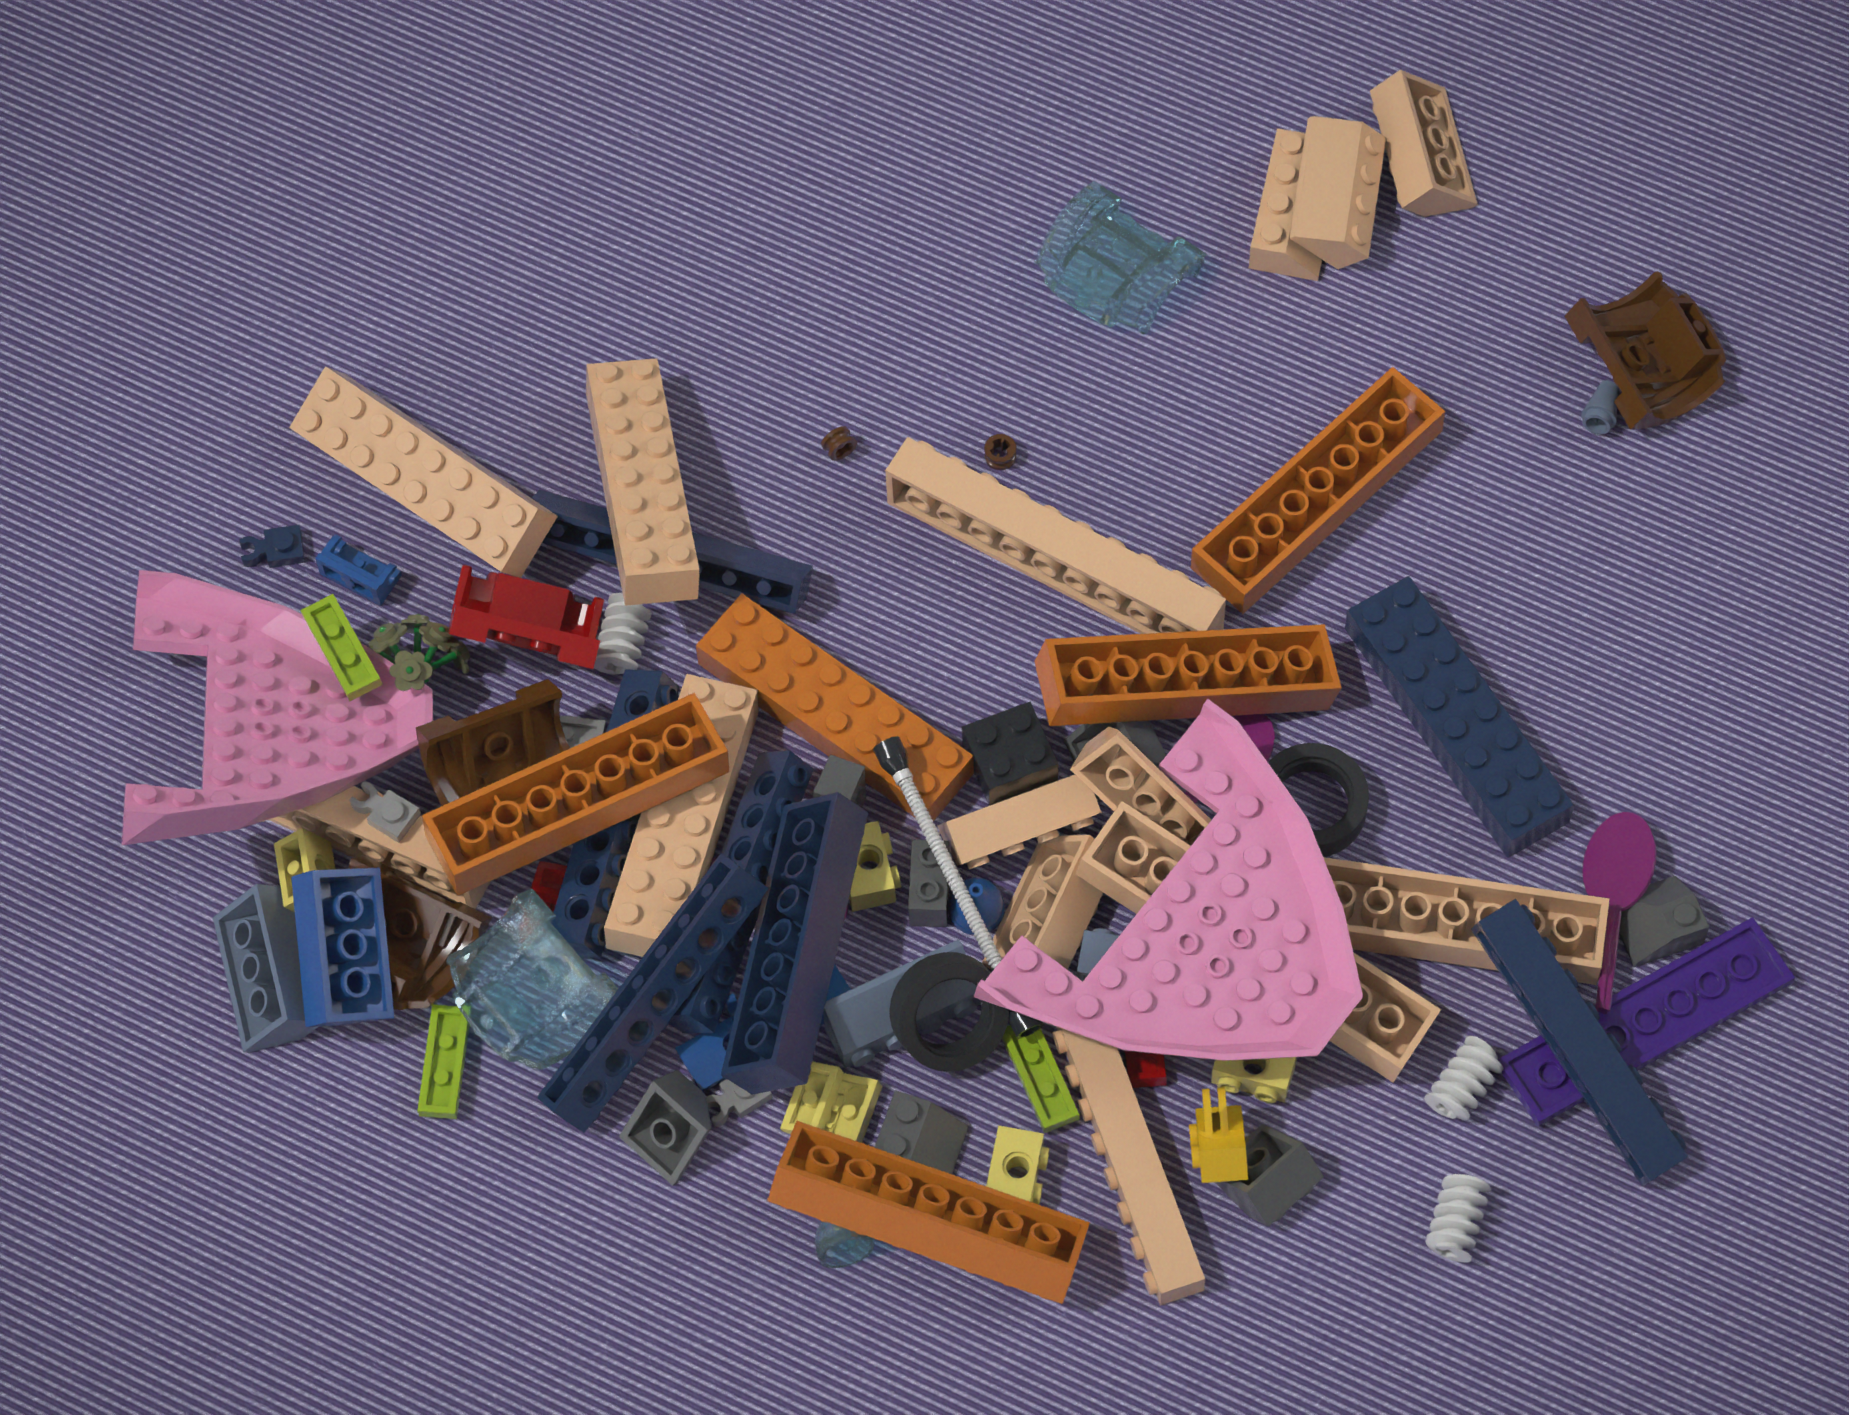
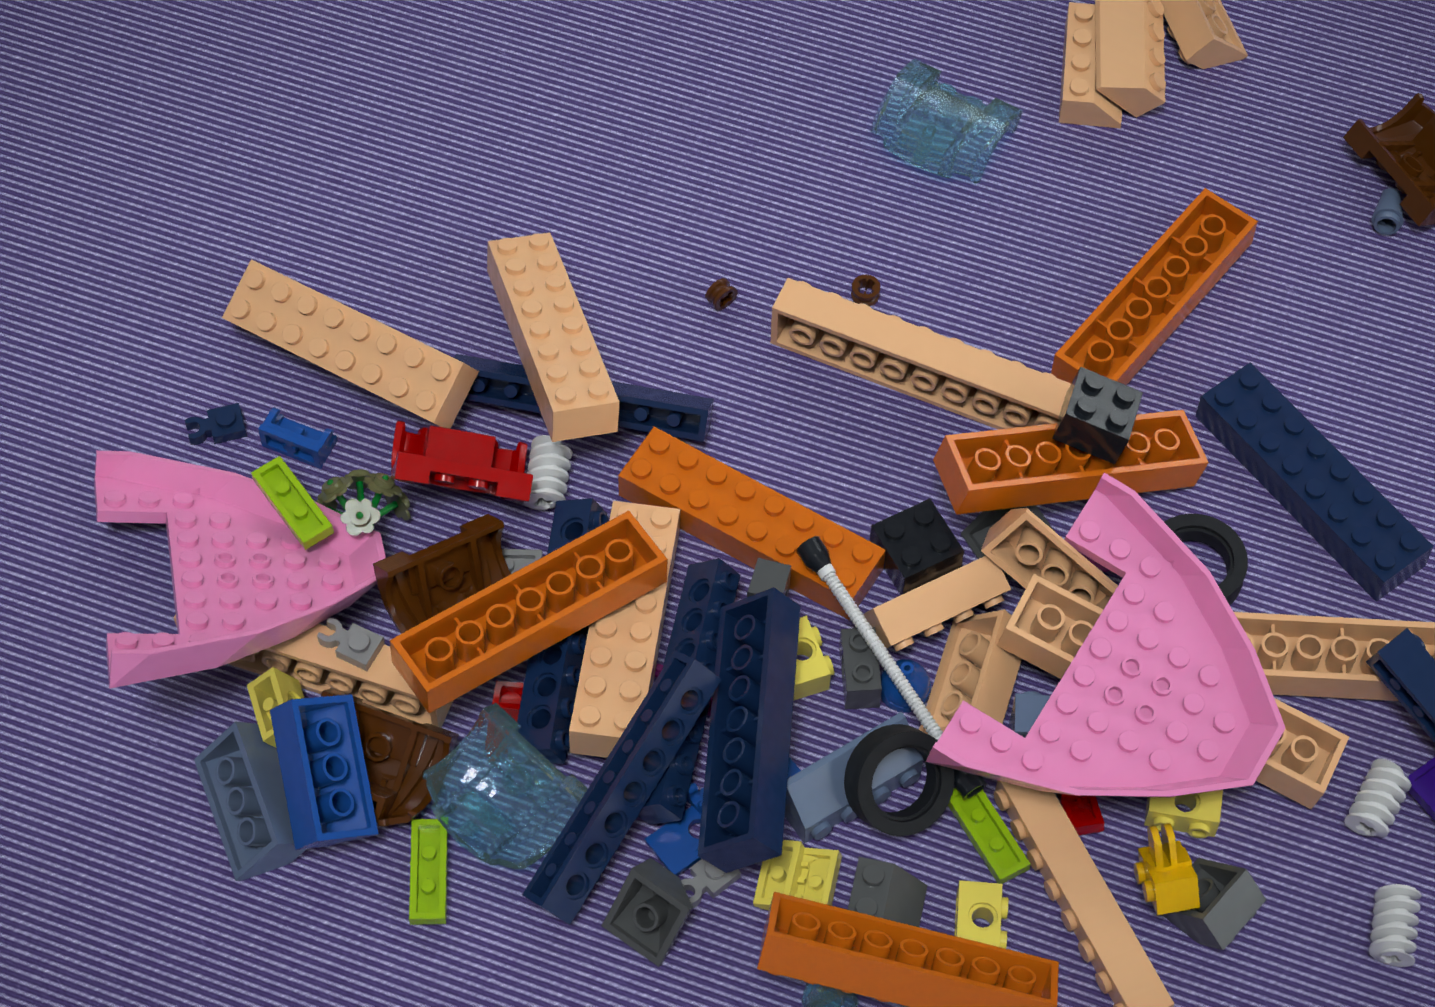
camera: 10 degrees left, 5 degrees down
(1219, 628) = (1097, 415): none -> black brick

